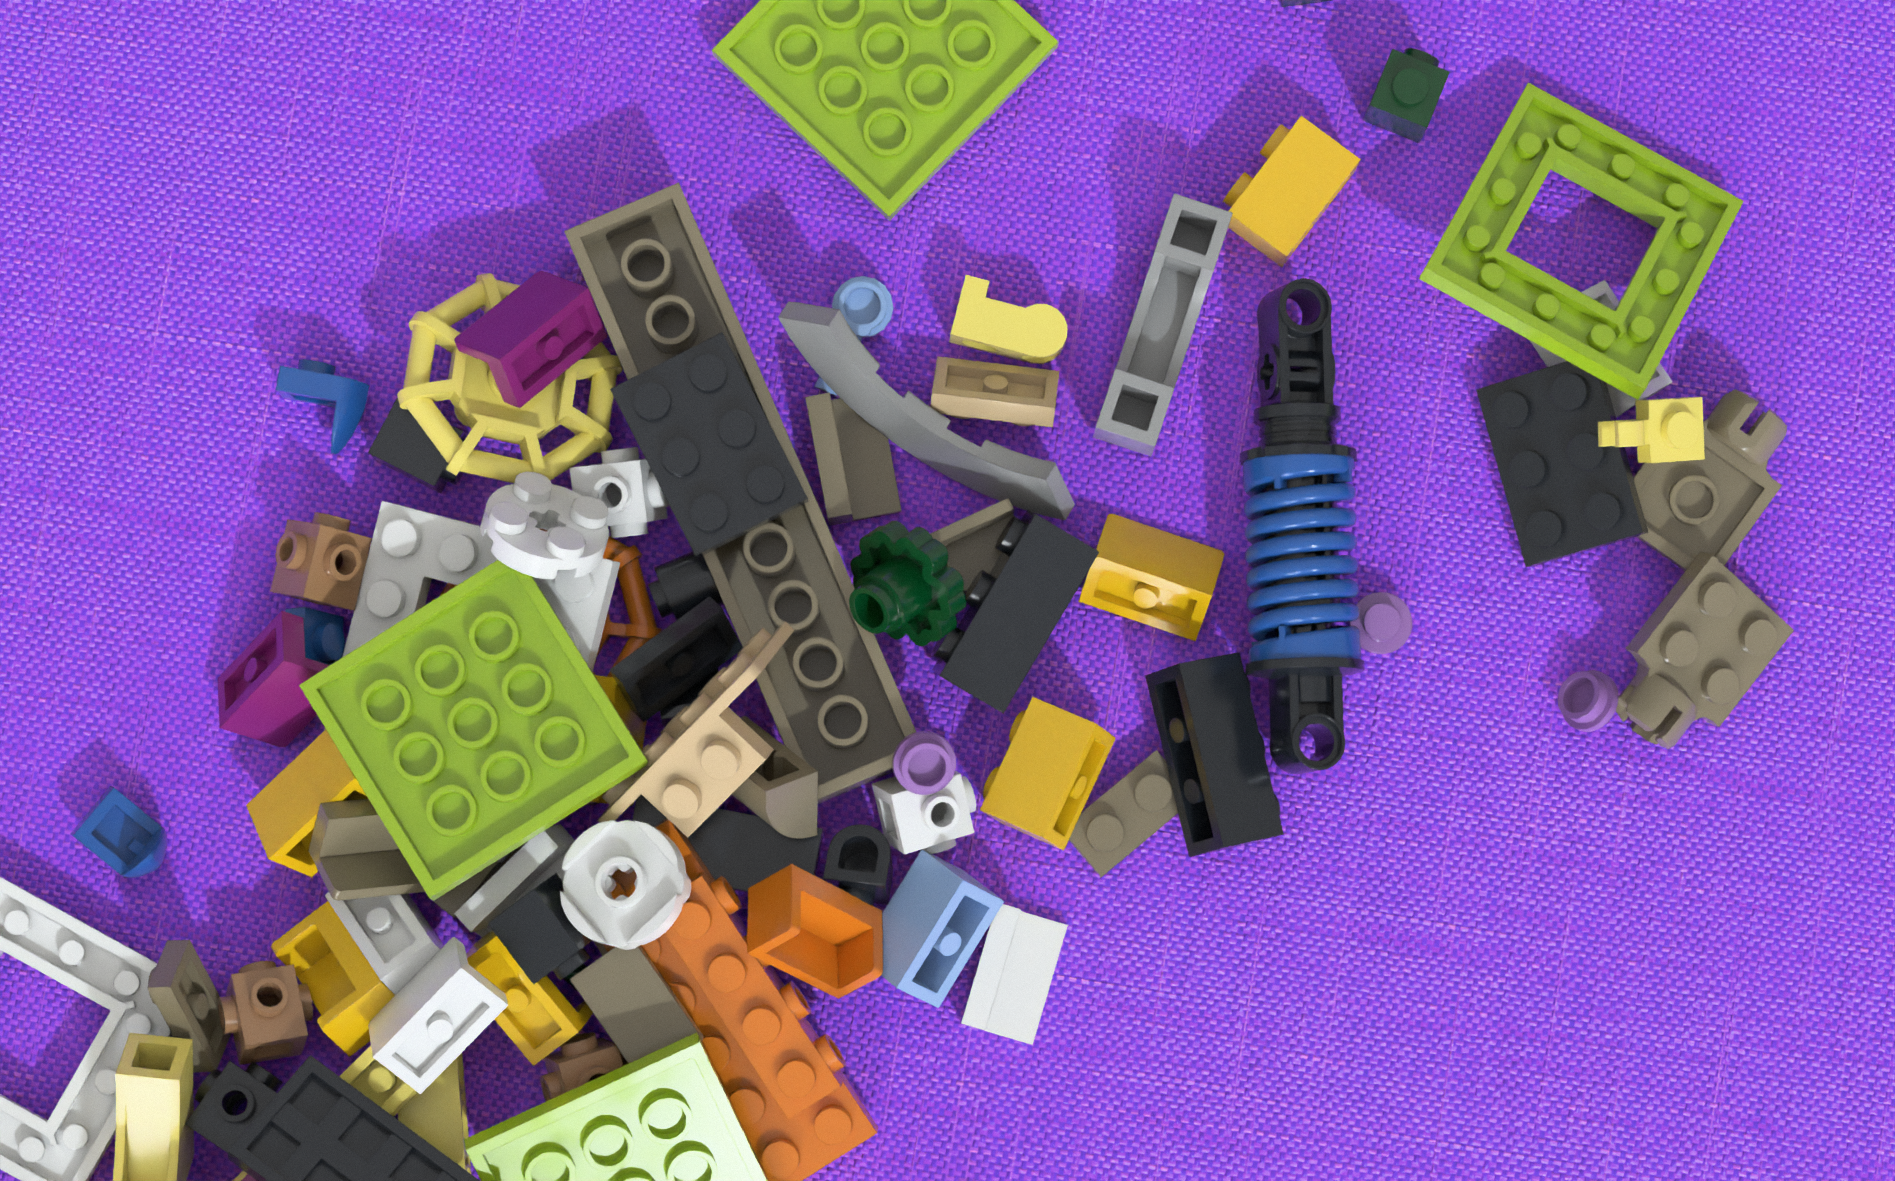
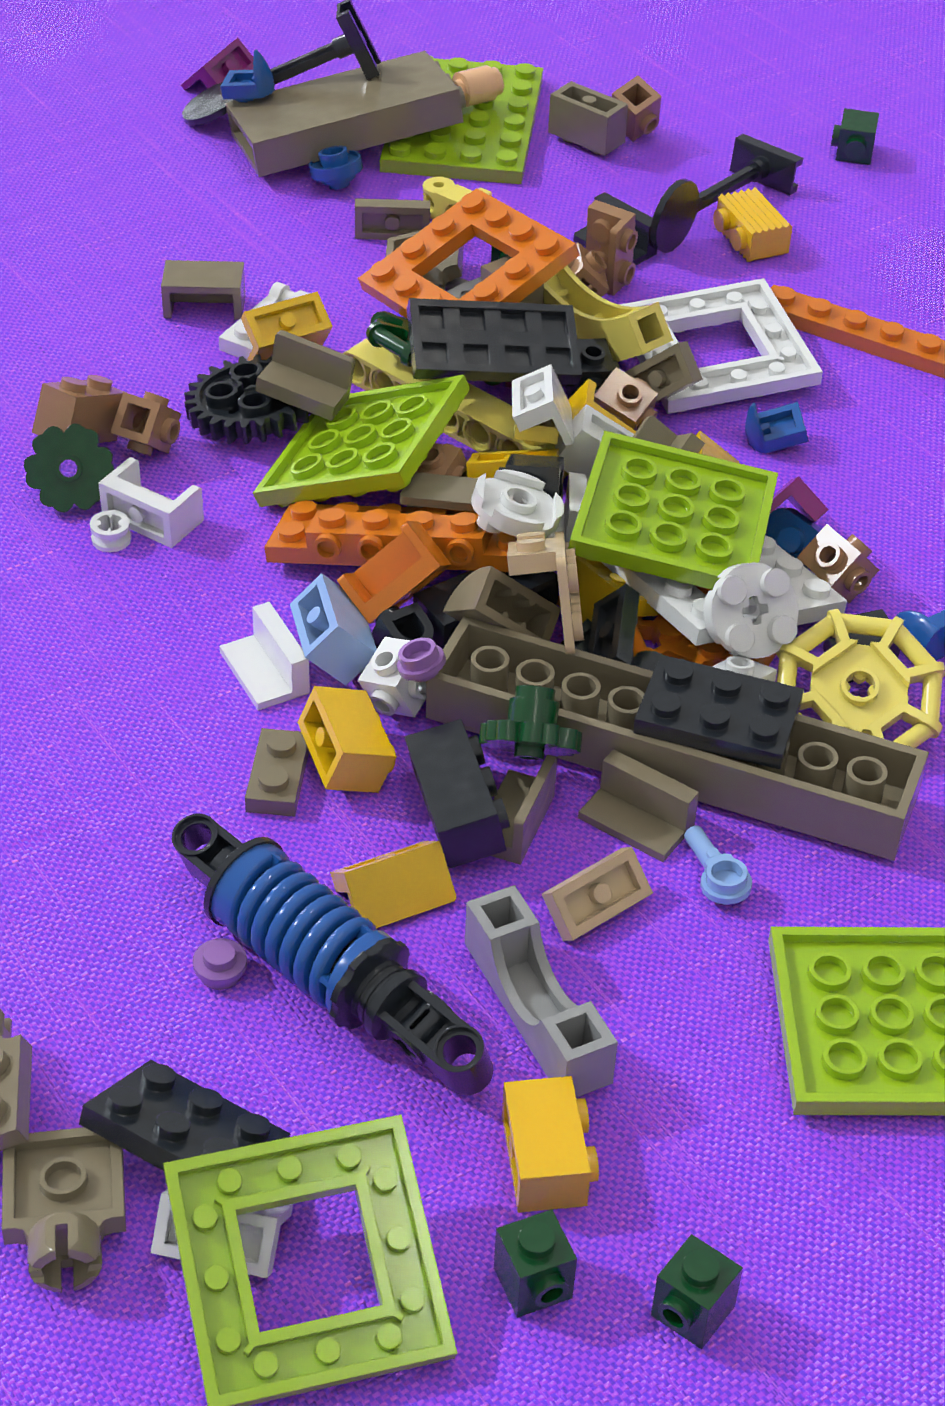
camera: 135 degrees right, 40 degrees down
(534, 335) = (877, 694): magenta panel -> none
(914, 426) = (644, 835): light grey tile -> none
(1005, 329) = (633, 931): light yellow leg -> none
(1214, 754) = (255, 808): black brick -> none
(1588, 700) = (33, 1015): medium lavender plate -> none
(1662, 430) = (128, 1174): light yellow plate -> none

